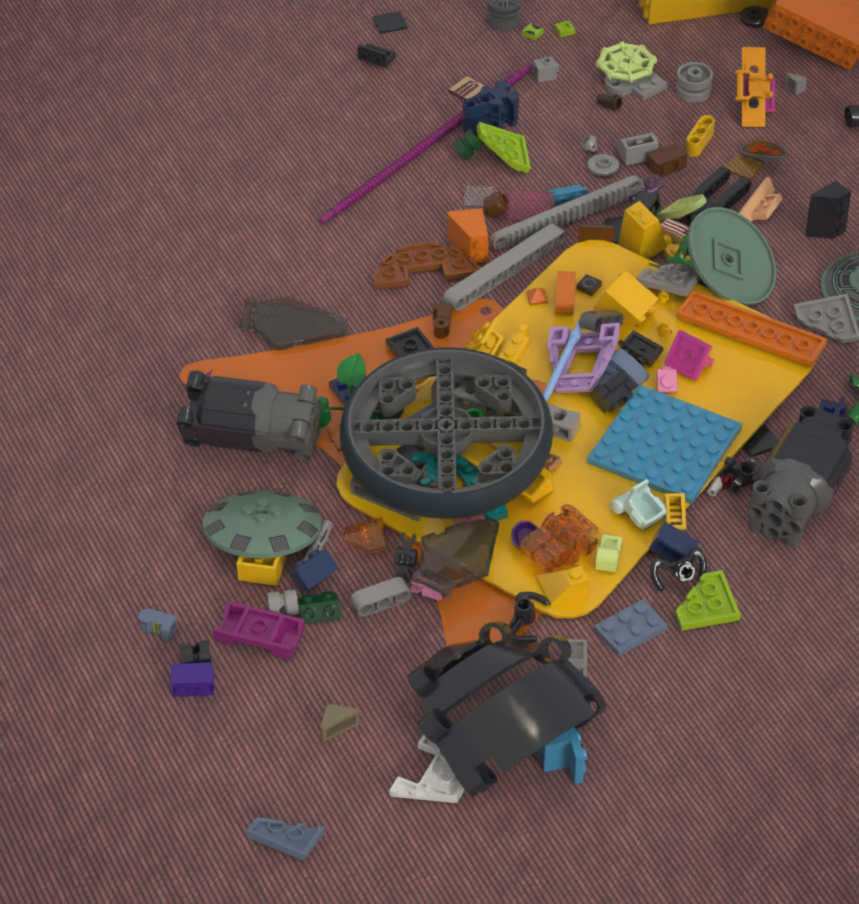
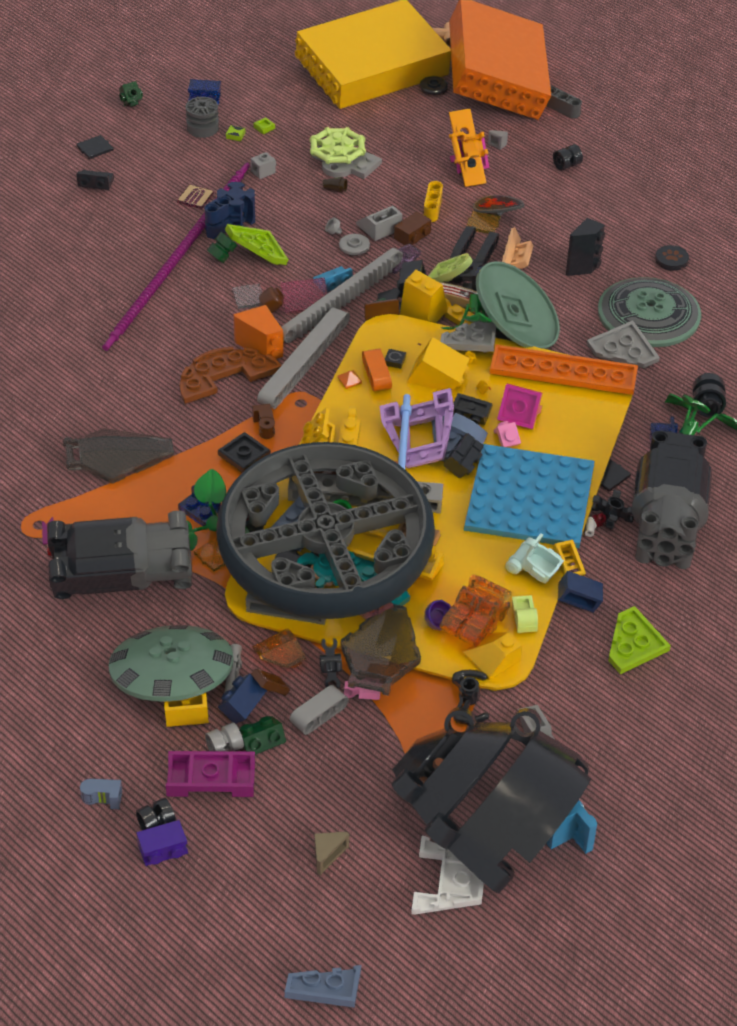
camera: 20 degrees left, 0 degrees up
(344, 561) = (270, 682): none -> reddish brown plate
(594, 319) = (423, 389): dark grey beam -> none
(630, 627) = (571, 683): sand blue plate -> none
(679, 568) = (597, 613): black piece -> none
(694, 82) = (407, 153): light grey wheel -> none

